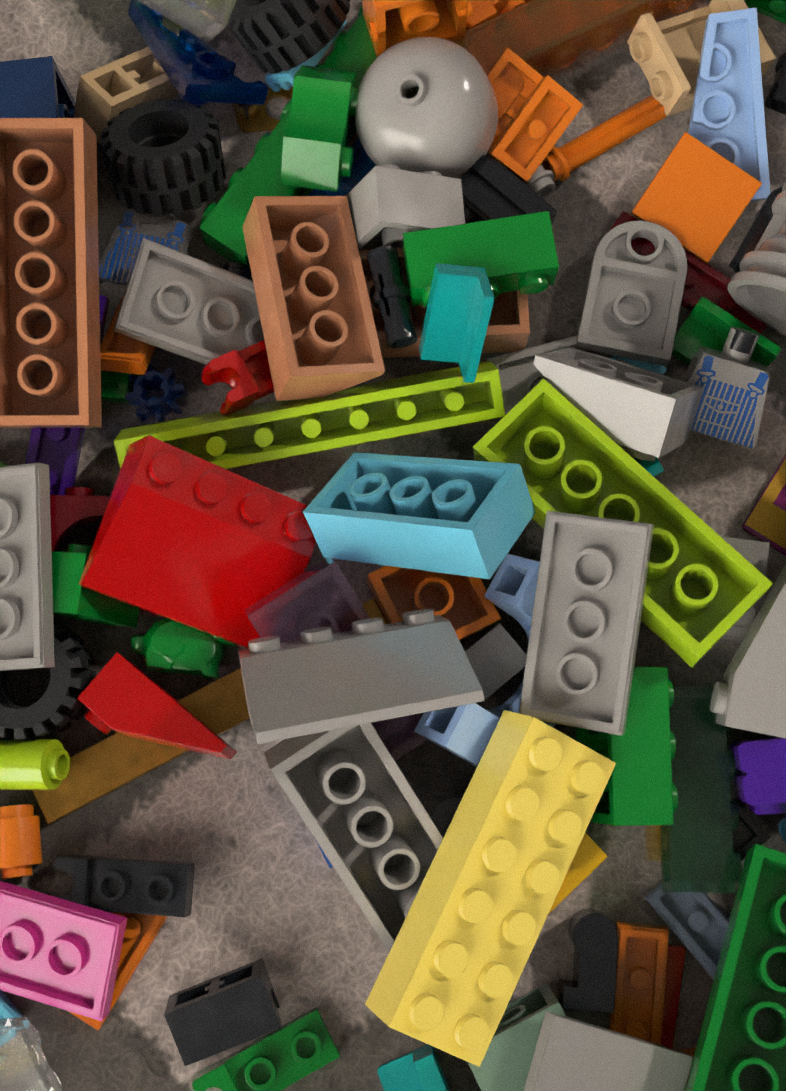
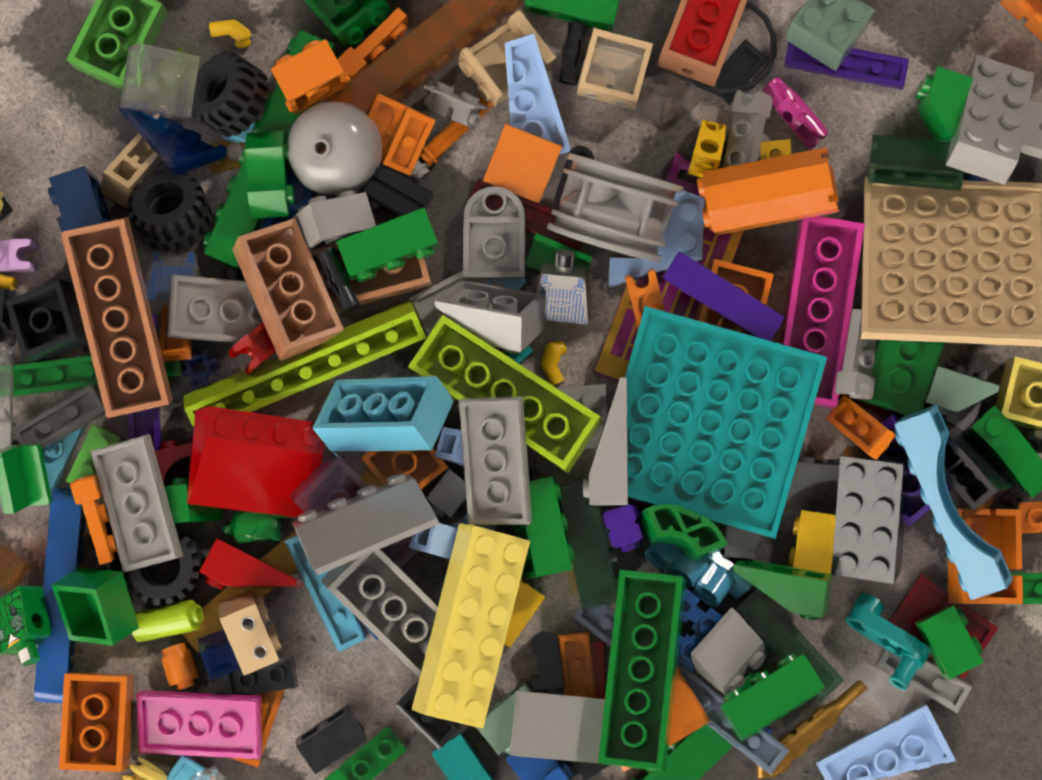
camera: 15 degrees left, 5 degrees up
(76, 836) = (217, 655): none -> clear blue brick
(131, 812) = (247, 631): none -> tan piece
(278, 825) = (338, 619): none -> medium azure tile
(395, 1047) = (435, 729): none -> black brick
(457, 317) = (381, 287): teal panel -> none
(627, 99) = (444, 99): none -> light grey hinge
(689, 483) = (550, 360): none -> yellow arm

